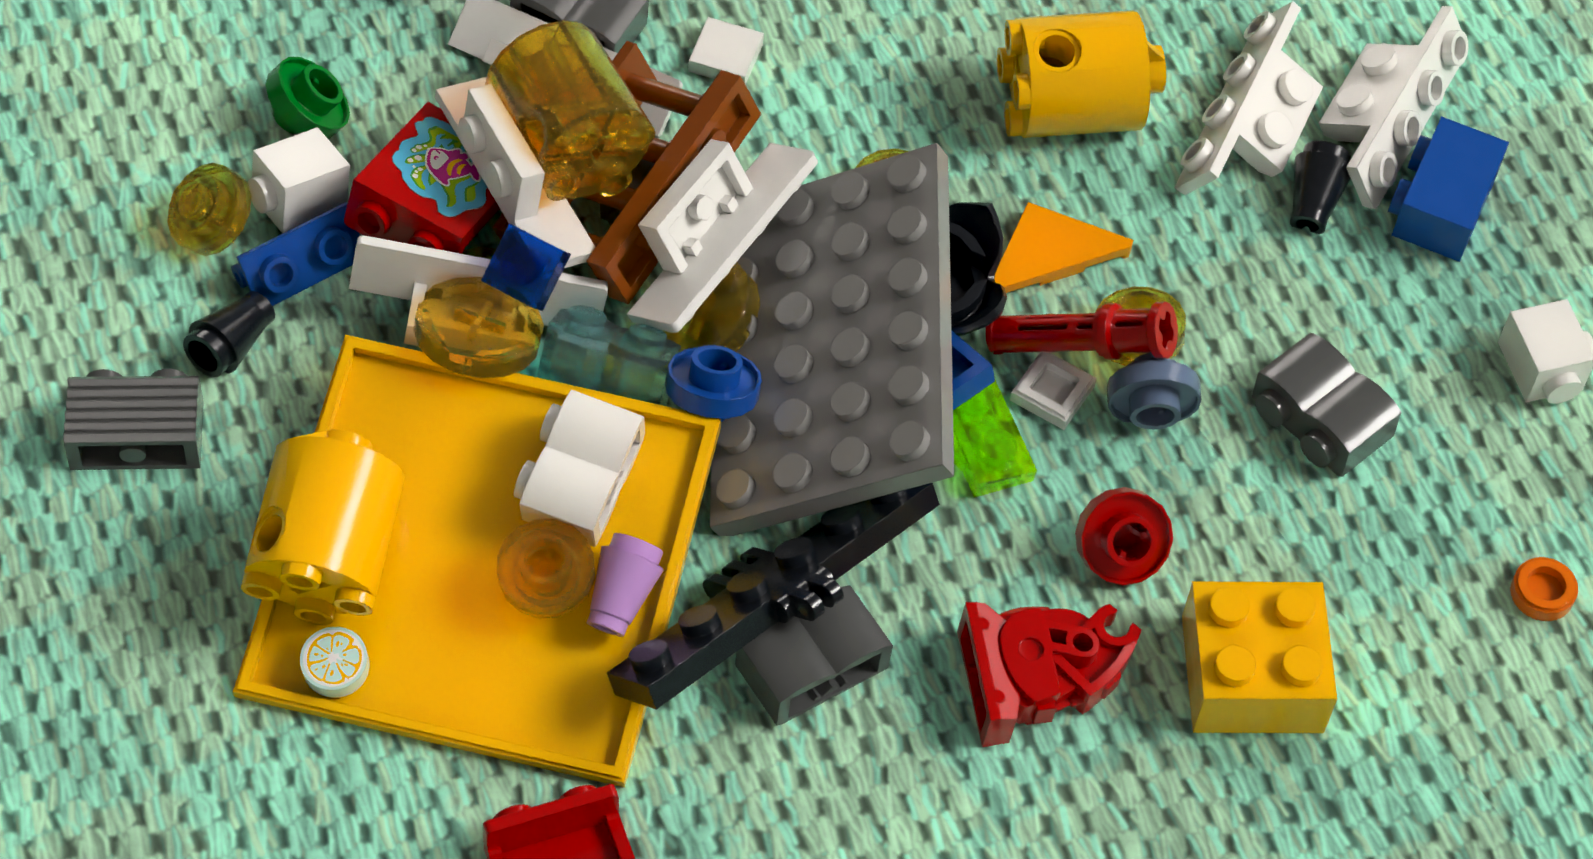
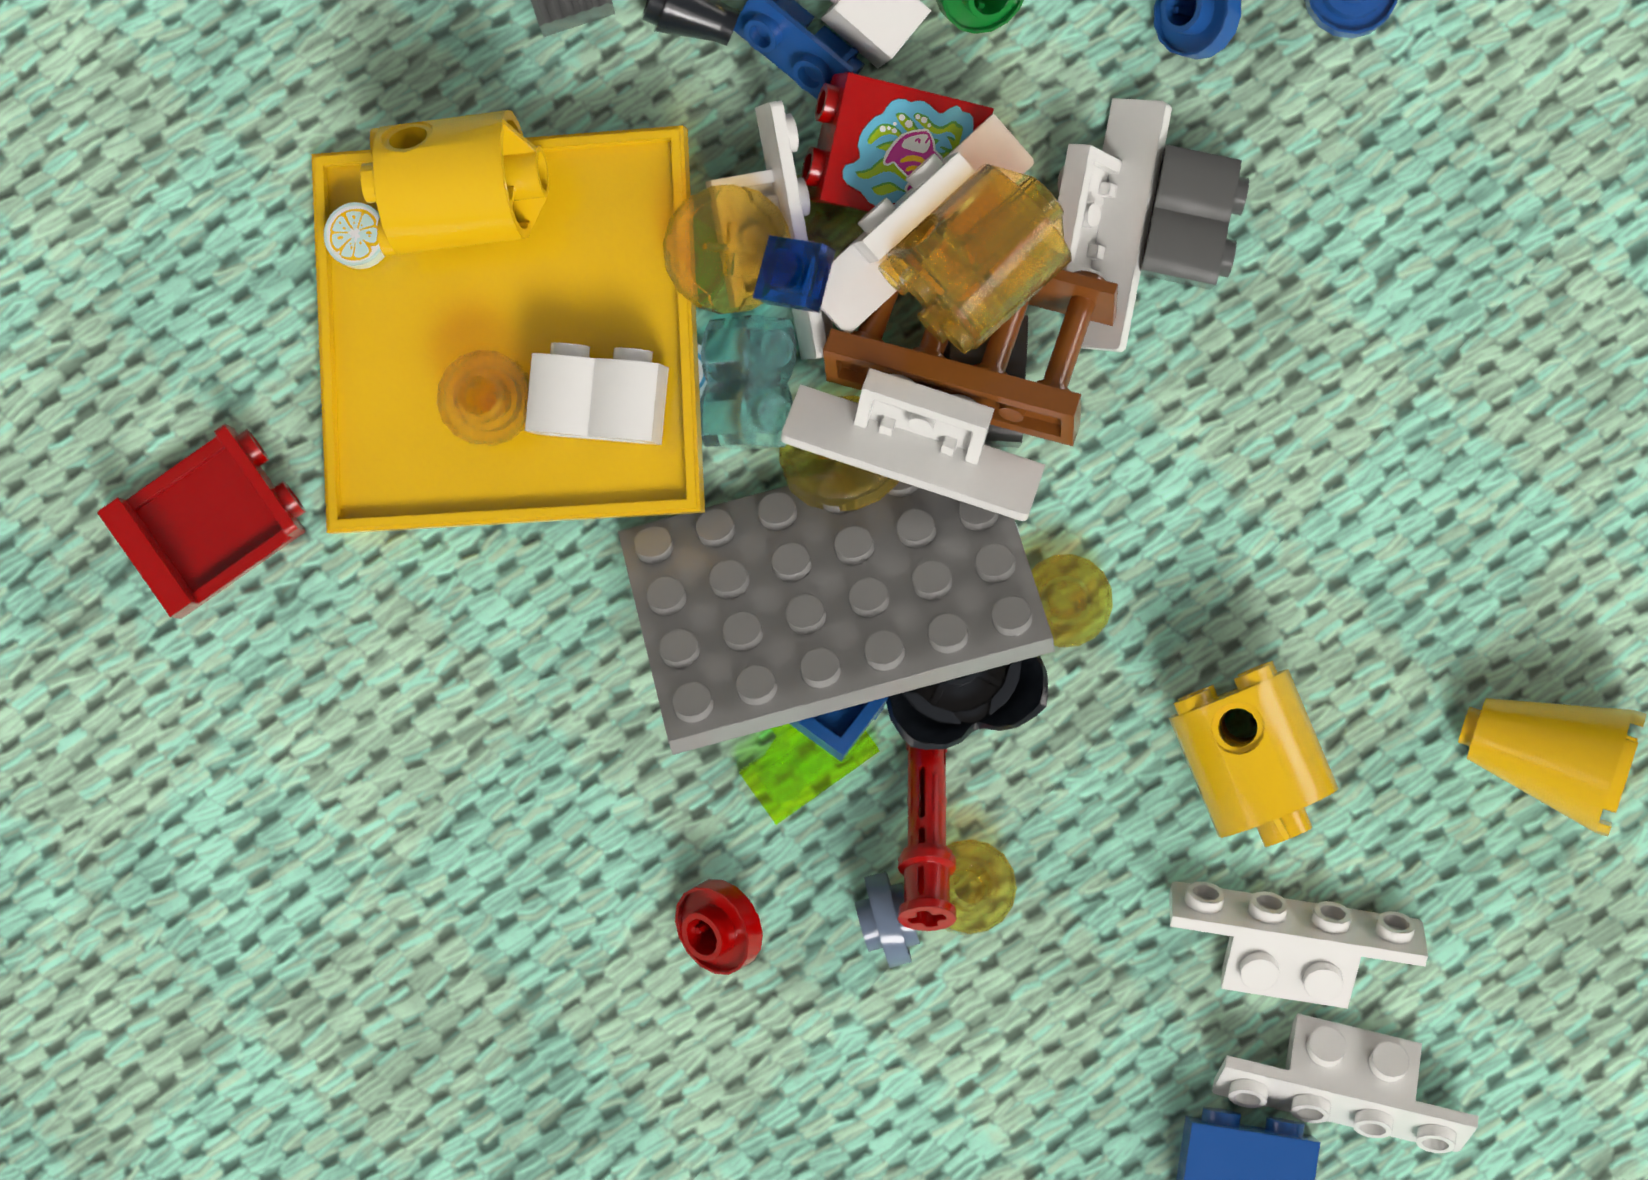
camera: 75 degrees right, 30 degrees up
(623, 582) = (499, 473): lavender cone -> none
(713, 382) = (741, 491): blue plate -> none
(726, 49) = (1193, 381): white tile -> none
(765, 590) = (542, 608): black hinge -> none
(811, 661) = (505, 665): dark grey brick -> none
(1037, 663) = (551, 878): red piece -> none
(1053, 389) = (879, 818): white tile -> none
(1055, 247) = (1052, 774): light orange tile -> none
(1258, 657) = (622, 1084): yellow brick -> none
(1318, 184) = (1210, 1029): black cone -> none
(1325, 404) = (936, 1090): dark grey brick -> none

